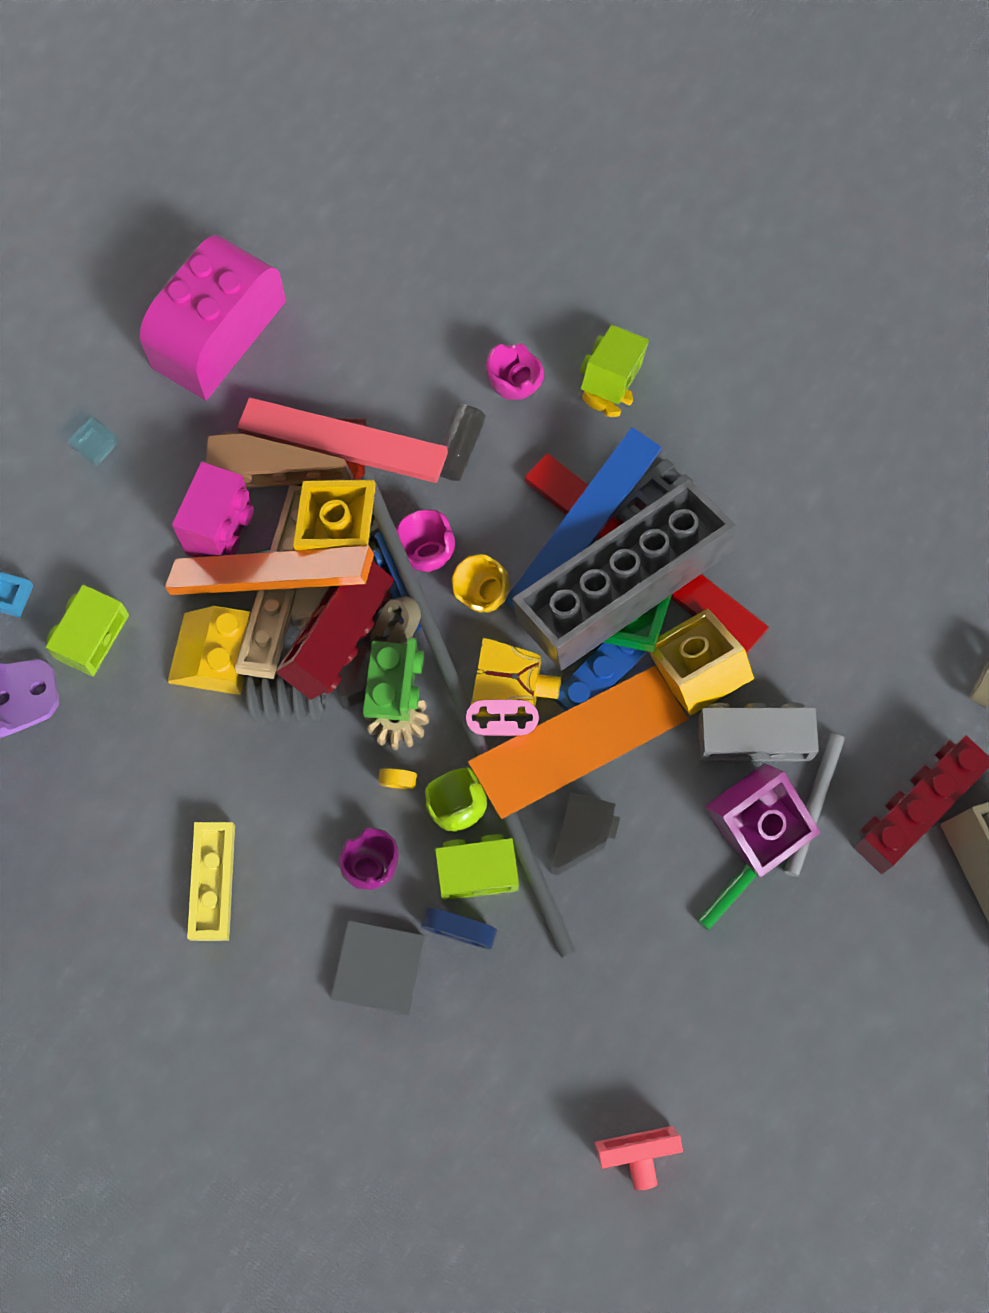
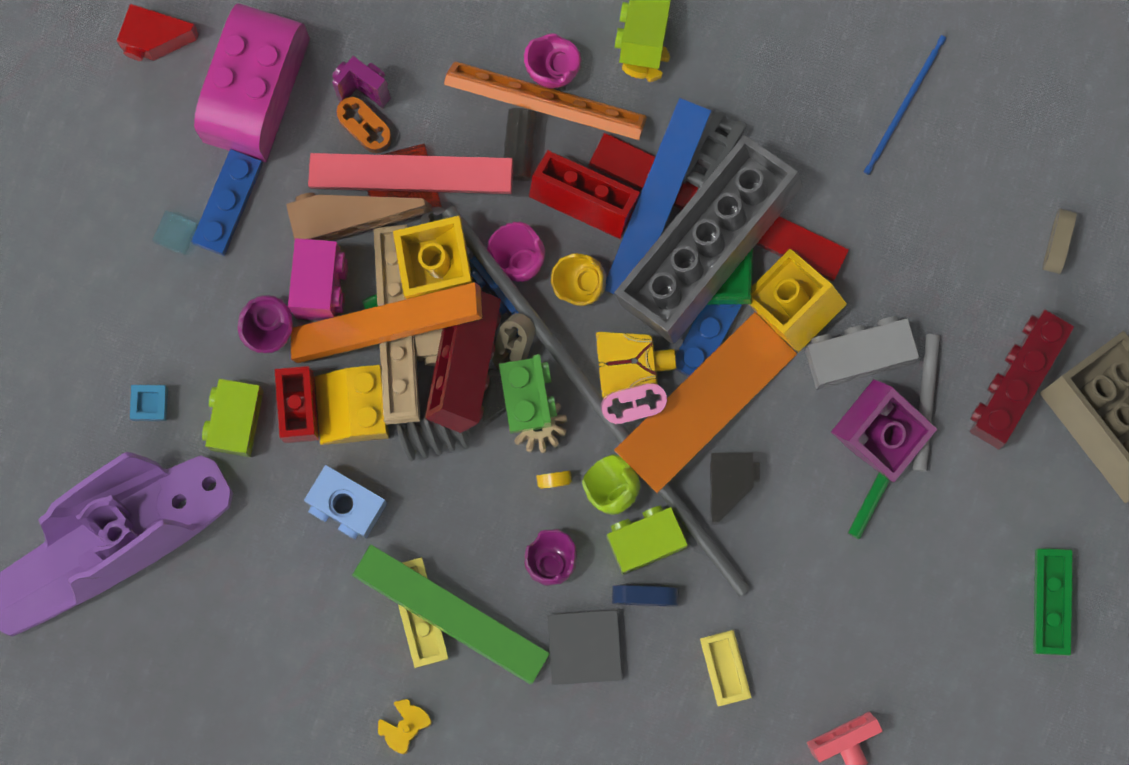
camera: 10 degrees left, 10 degrees up
(136, 256) = (153, 34): none -> red slope
(148, 545) = (265, 324): none -> magenta hair
(153, 631) = (296, 404): none -> red brick
(154, 426) = (227, 202): none -> blue plate
(163, 725) = (332, 486): none -> light blue brick
(171, 997) = (400, 737): none -> yellow piece
(243, 891) = (450, 614): none -> bright green tile
(316, 337) = (364, 78): none -> magenta bracket
(318, 385) = (369, 119): none -> orange beam
(498, 408) = (545, 100): none -> orange tile
(509, 501) = (583, 194): none -> red brick
(525, 1032) = (725, 668): none -> light yellow tile
(859, 504) = (904, 105): none -> blue piece
(907, 1057) = (1052, 602): none -> green plate

